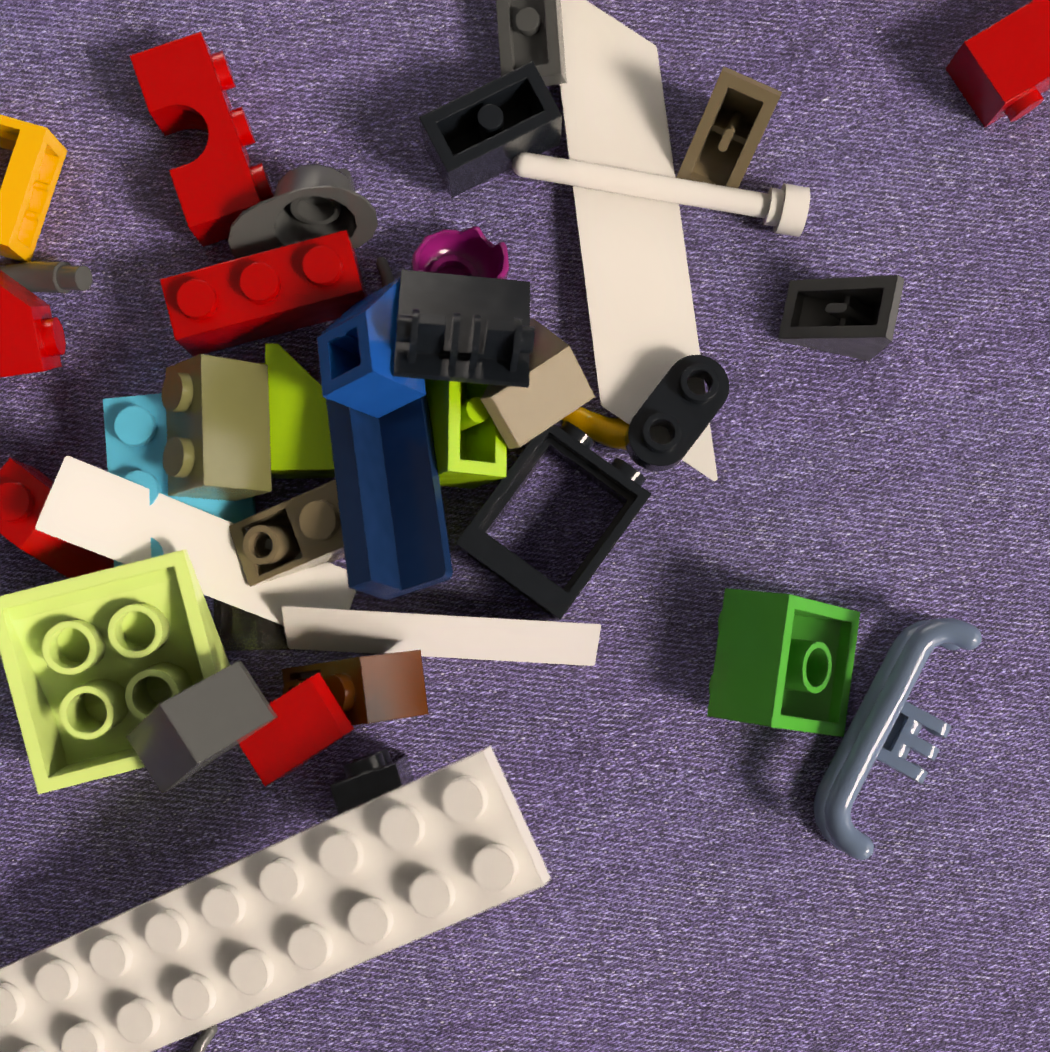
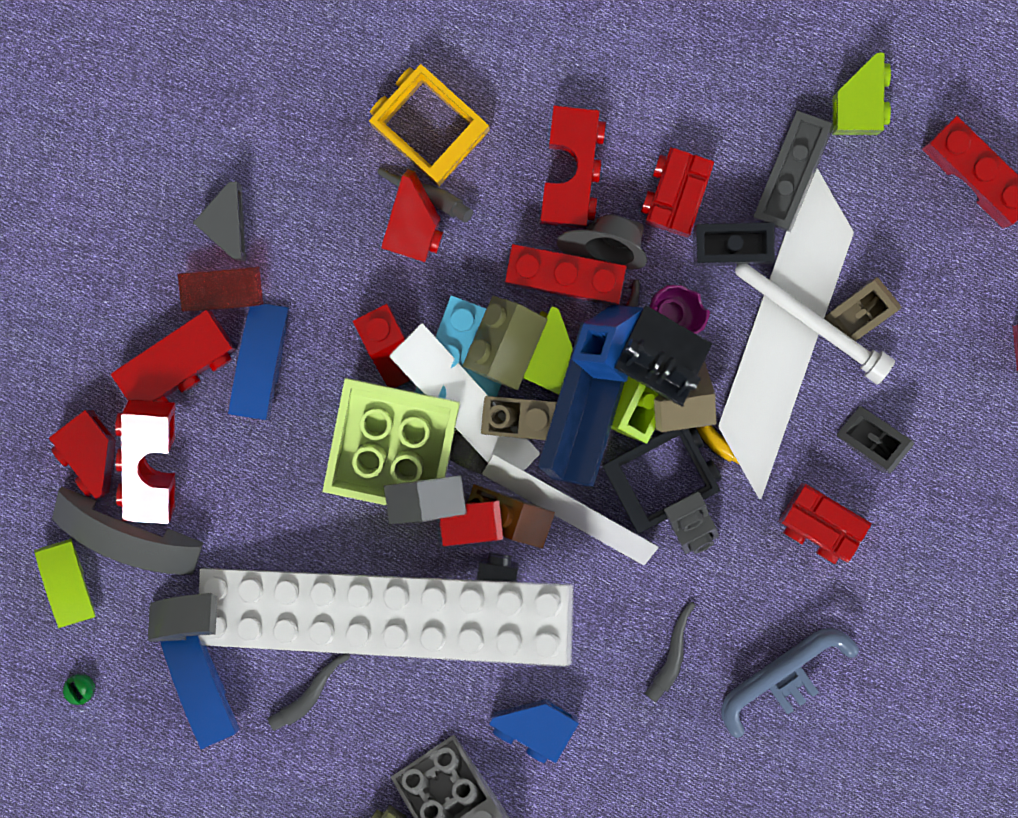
camera: 25 degrees right, 5 degrees up
(376, 100) = (678, 191): none -> red brick
(553, 993) = (538, 726): none -> blue slope
(633, 564) = (692, 524): none -> dark grey slope
(677, 410) = (758, 452): black plate -> none
(711, 800) = (670, 670): none -> dark grey animal
(783, 662) = (747, 615): bright green slope -> none
(829, 471) = (824, 523): none -> red brick

